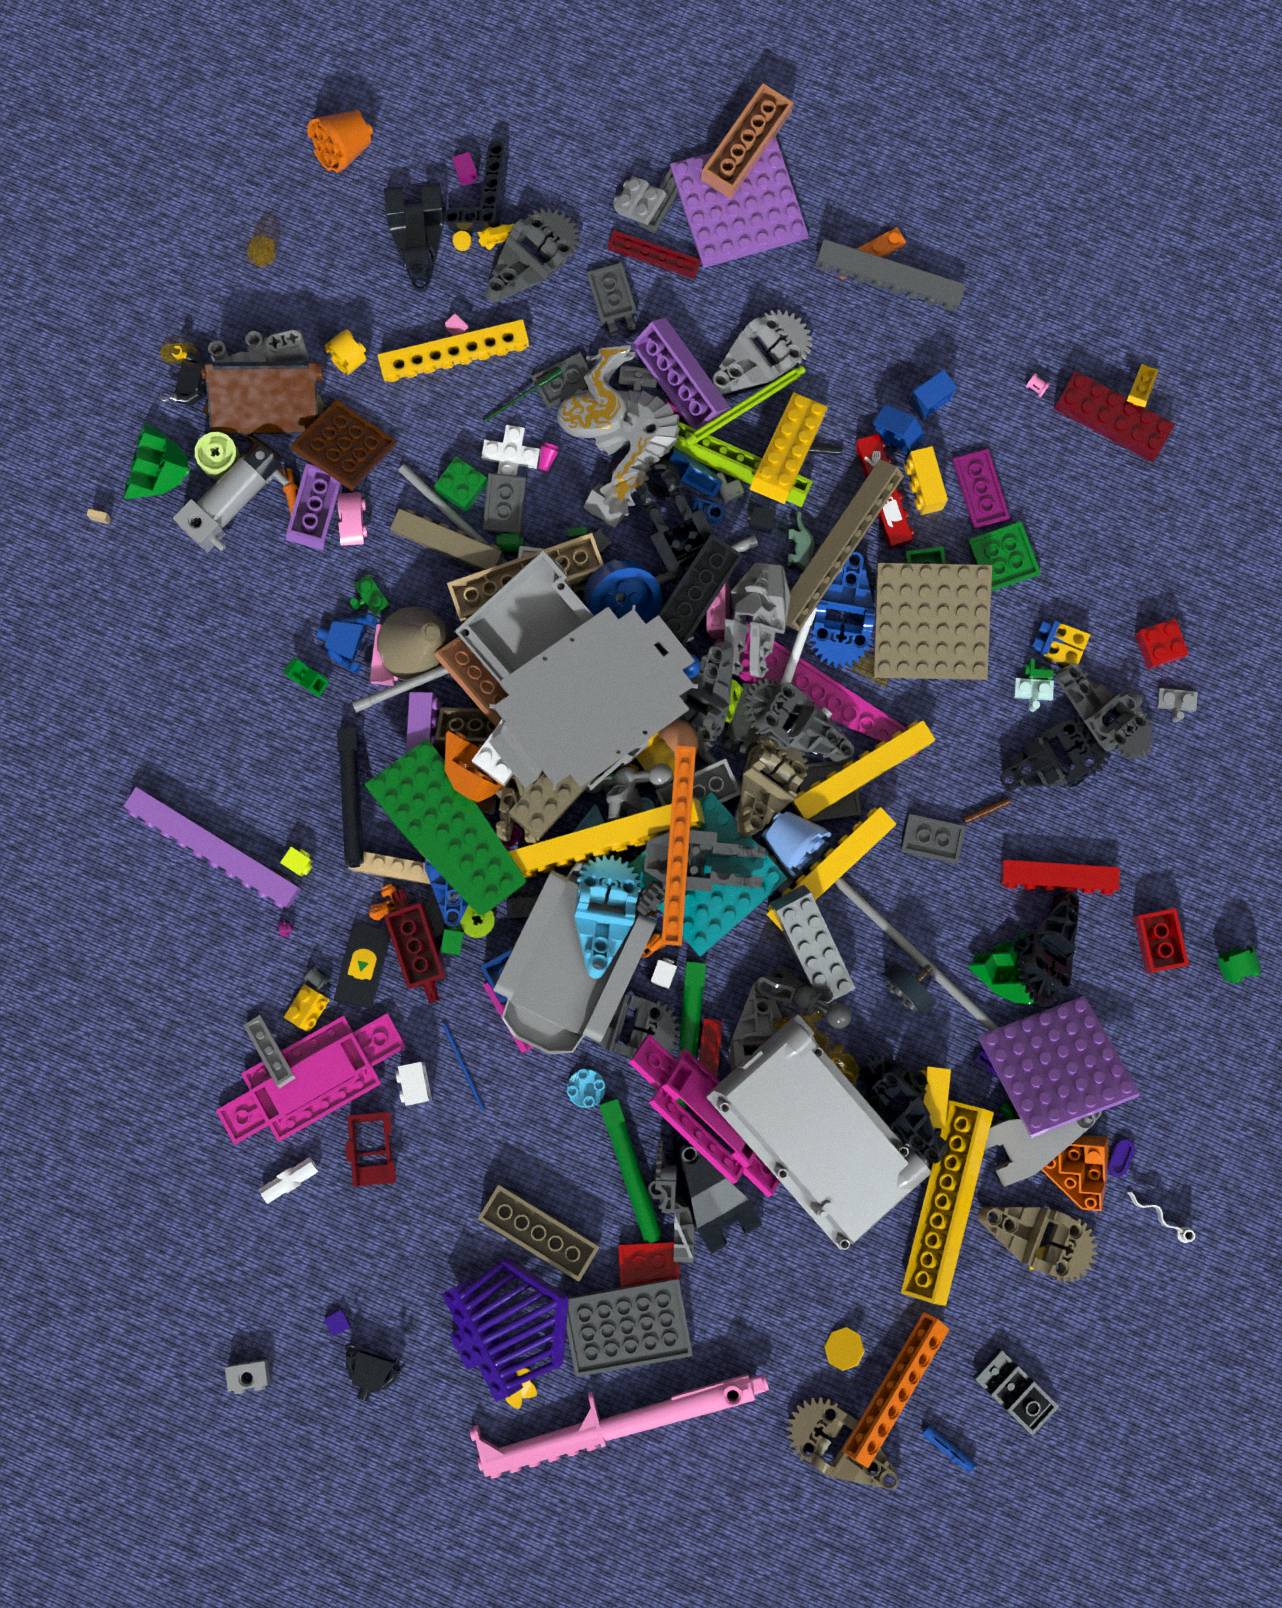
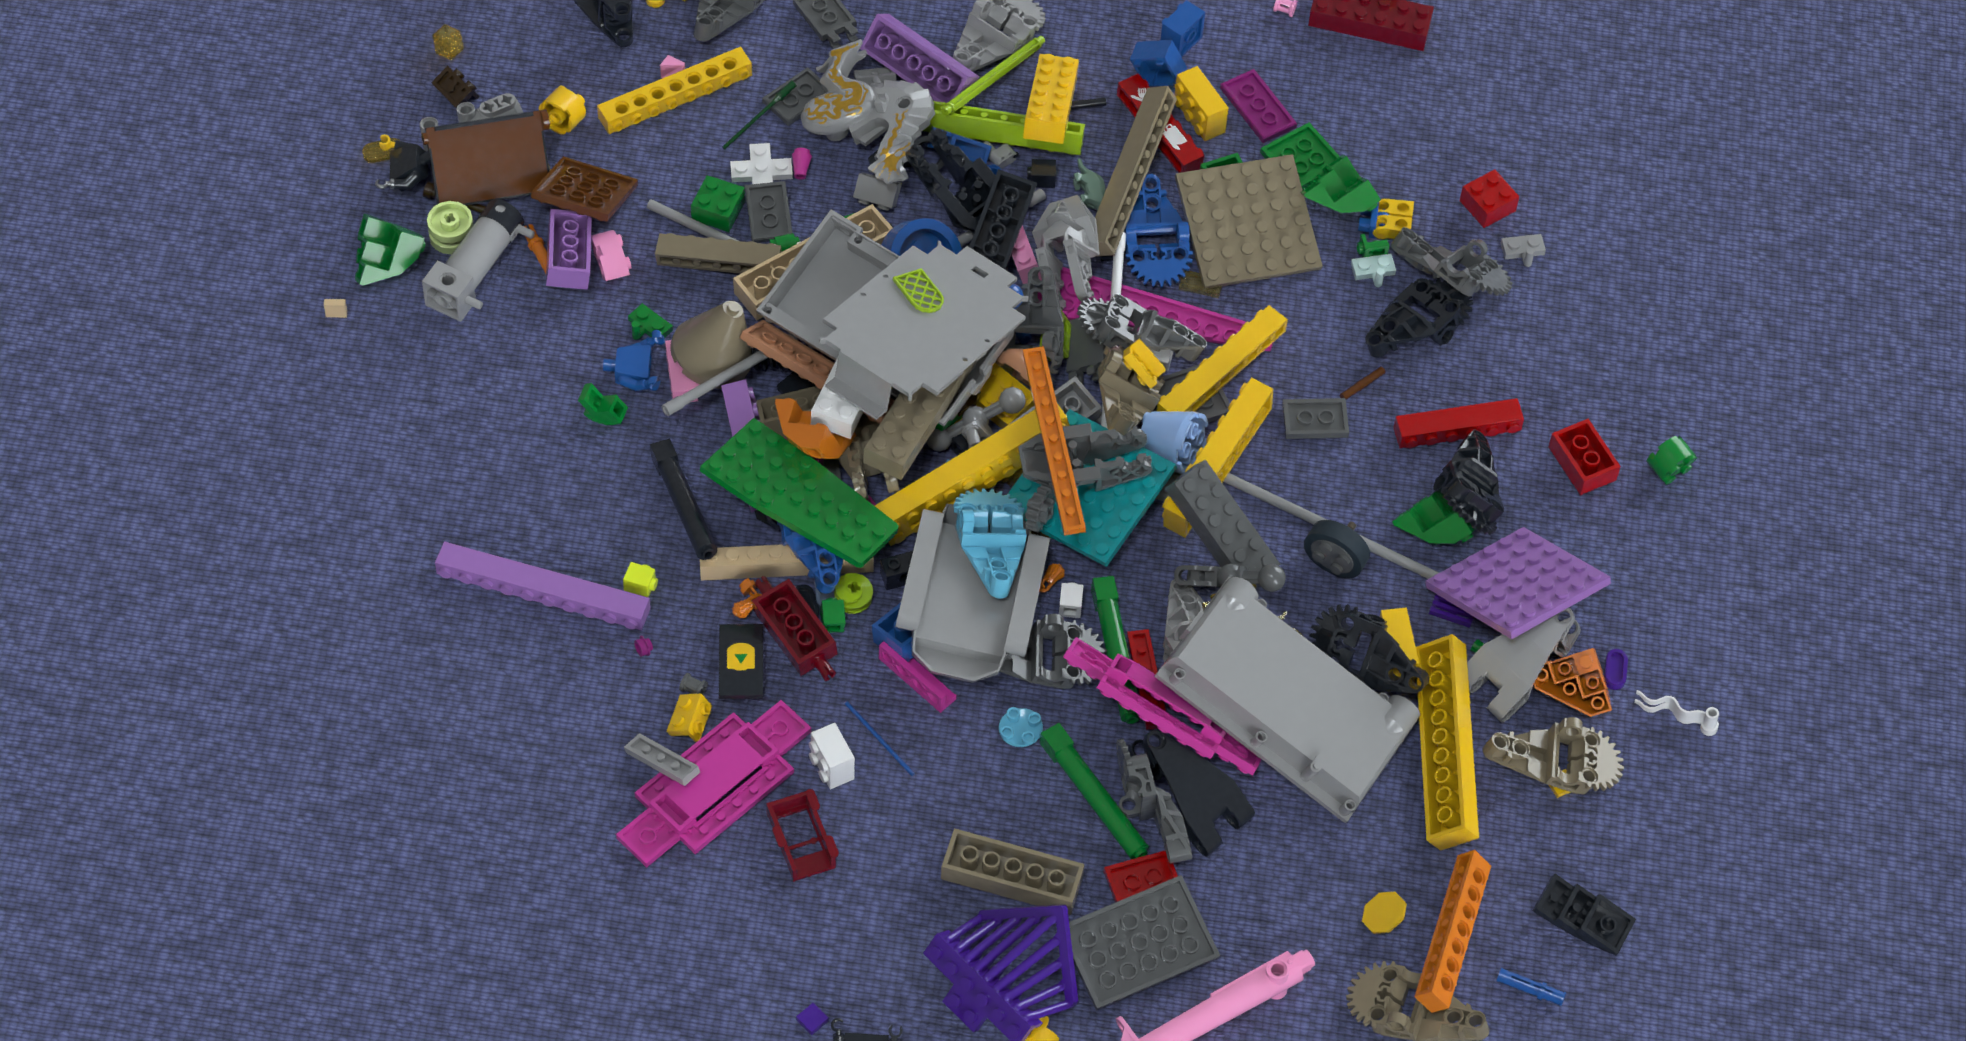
camera: 15 degrees left, 25 degrees down
(258, 300) = (453, 87): none -> dark brown bracket
(288, 1180) = (717, 886): white piece -> none
(593, 643) = (897, 279): none -> lime window
(788, 765) = (1143, 362): none -> yellow bracket
(1026, 608) = (1342, 188): none -> green brick

